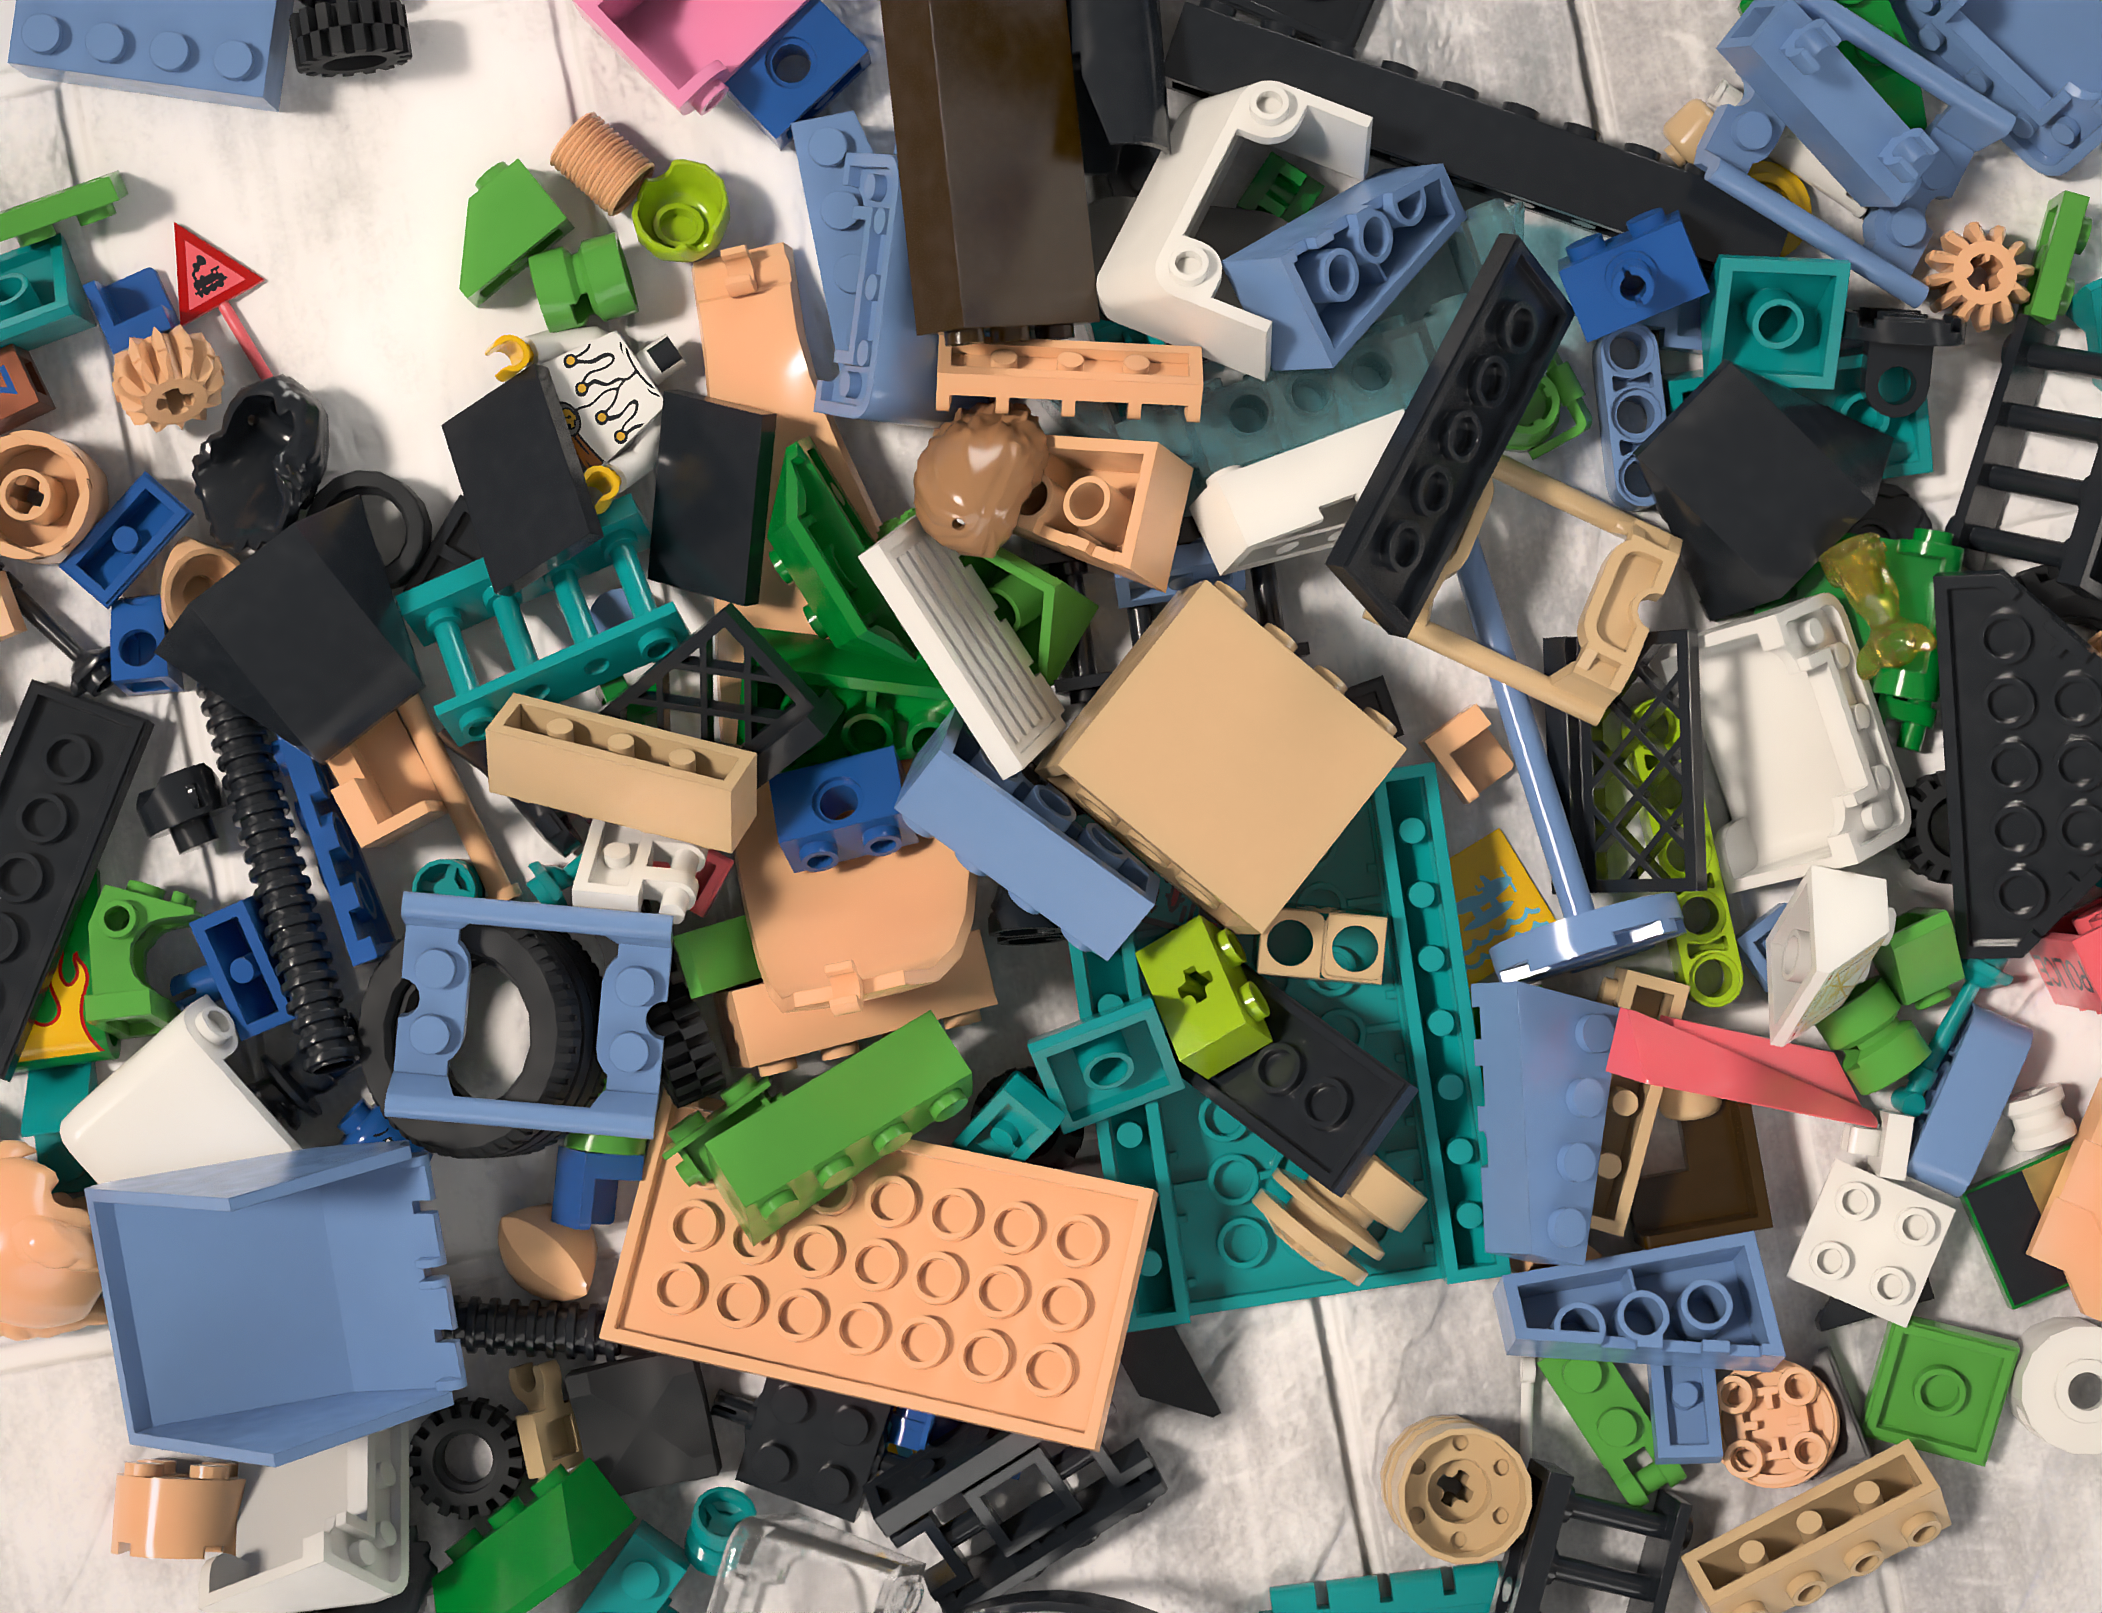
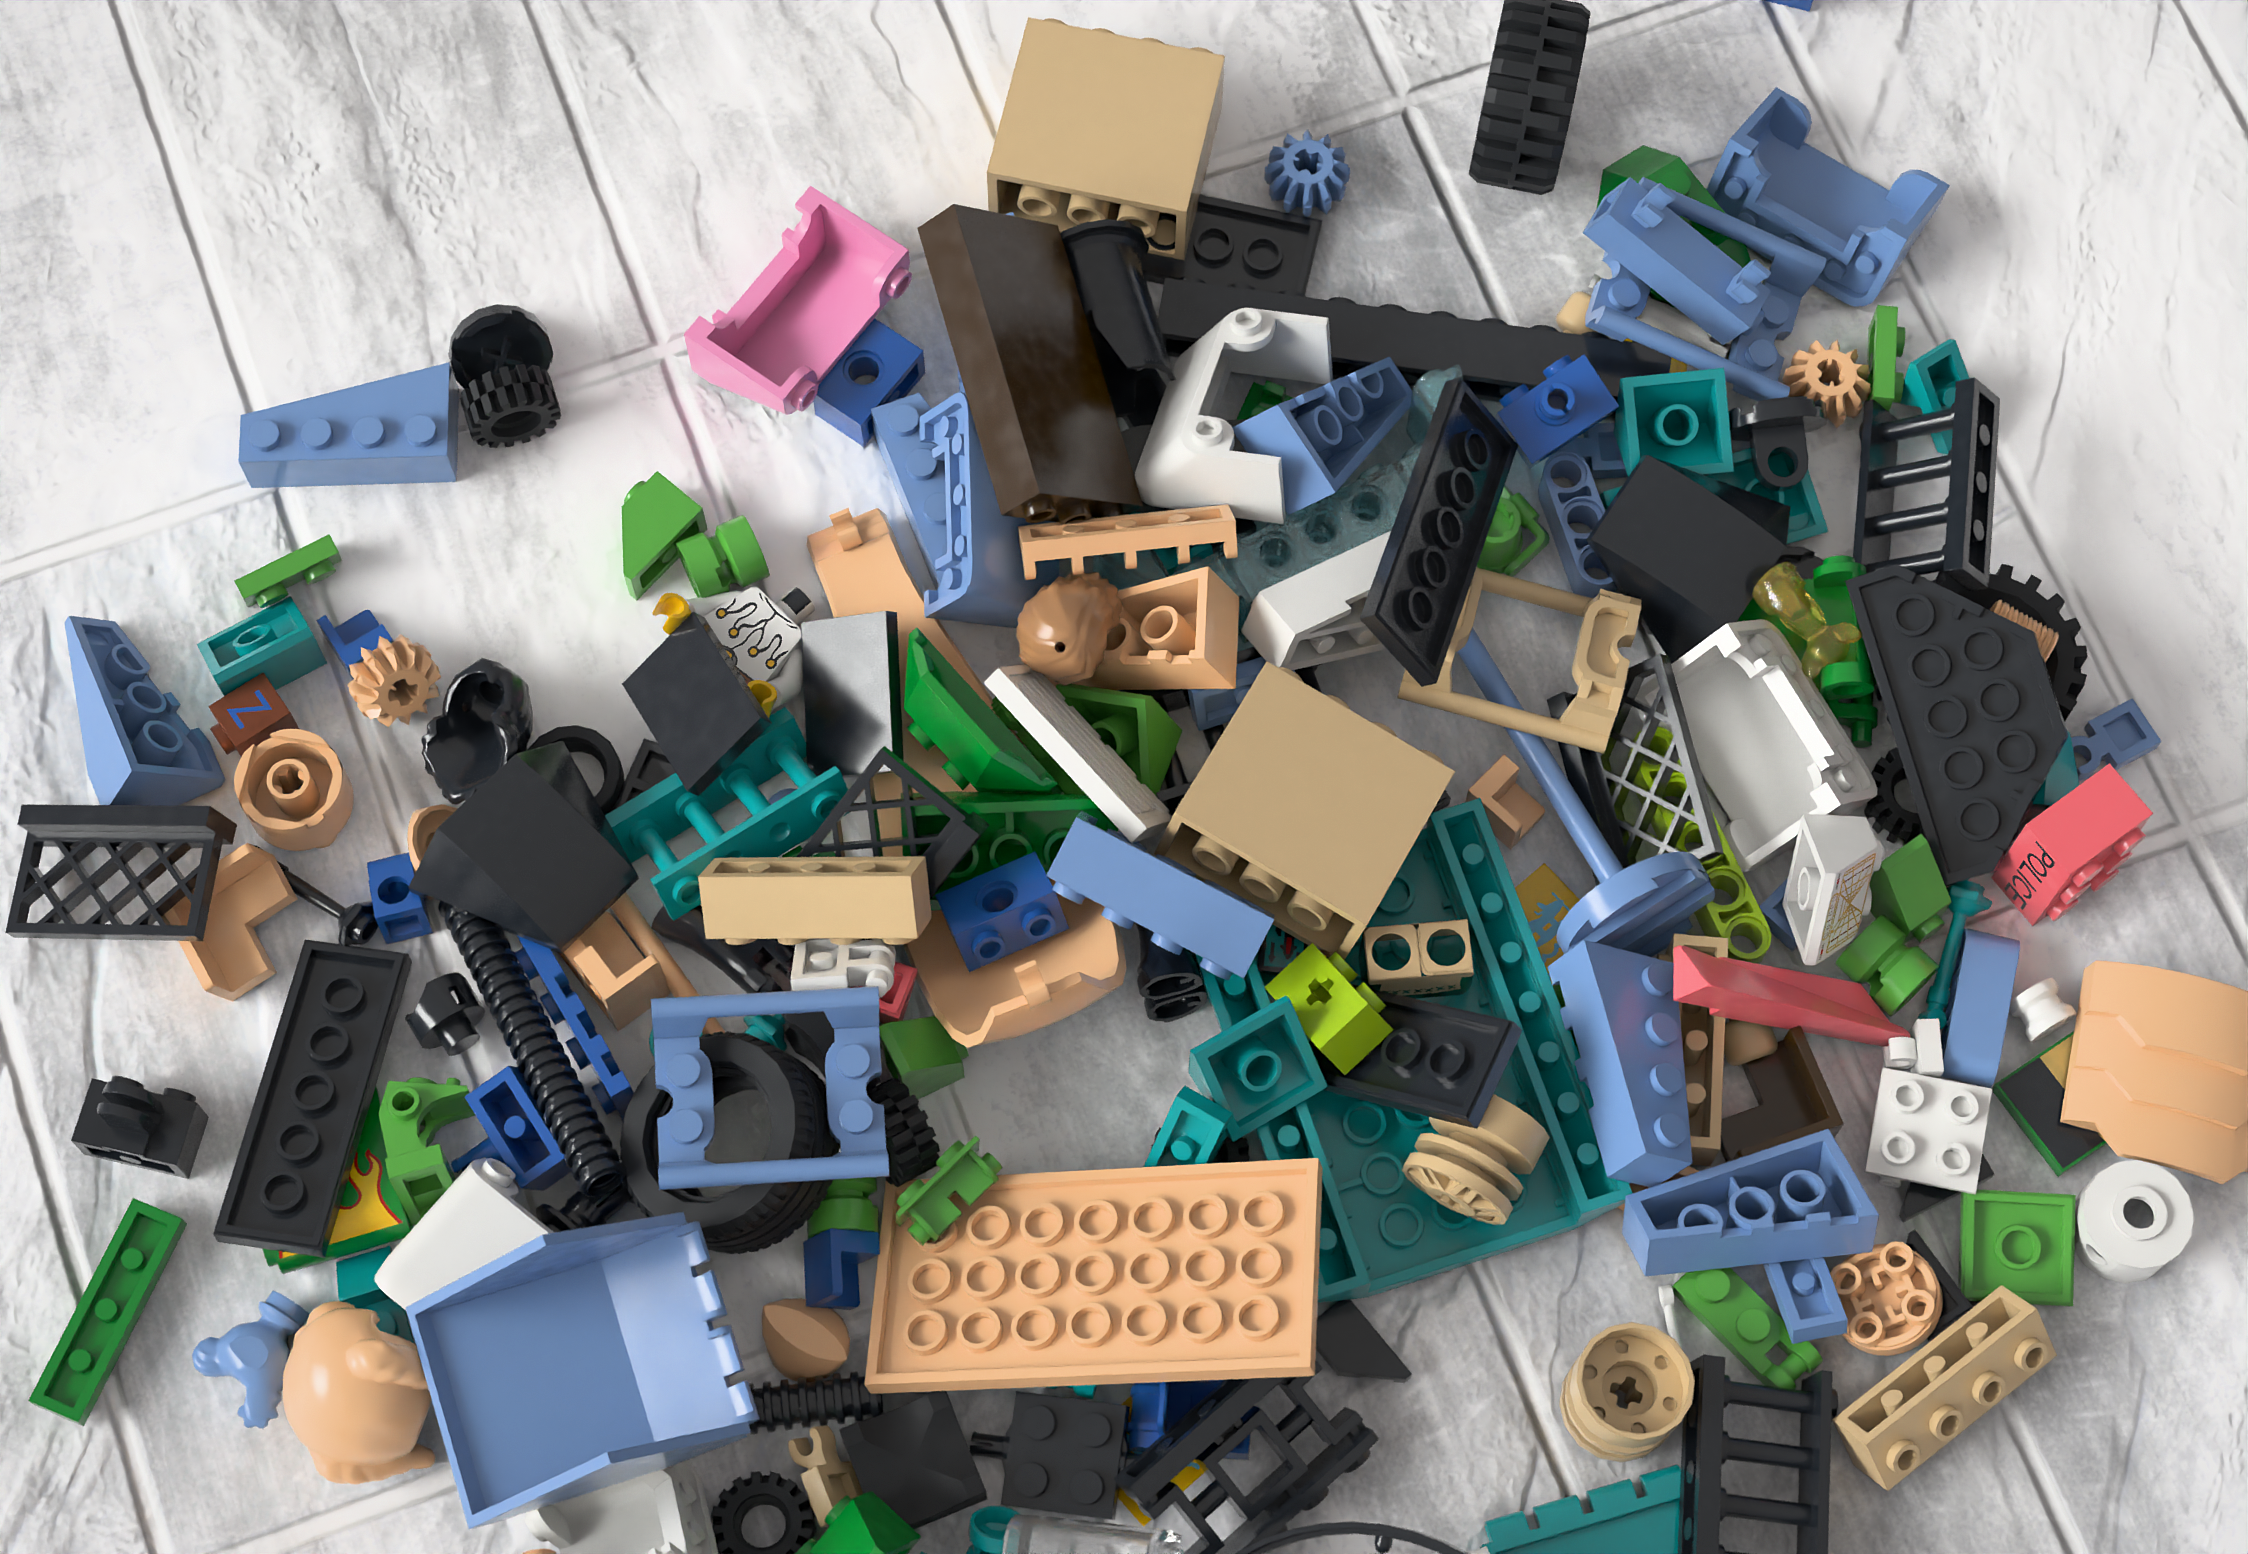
camera: 10 degrees left, 20 degrees down
(126, 540) = (372, 813): blue slope -> none
(210, 281) = (418, 612): piece -> none
(601, 163) = (723, 471): light nougat piece -> none
(682, 212) = (794, 495): lime hair -> none
(767, 1038) = (1036, 1075): light nougat wedge -> none
(837, 1125) = (1037, 1162): bright green wedge -> none

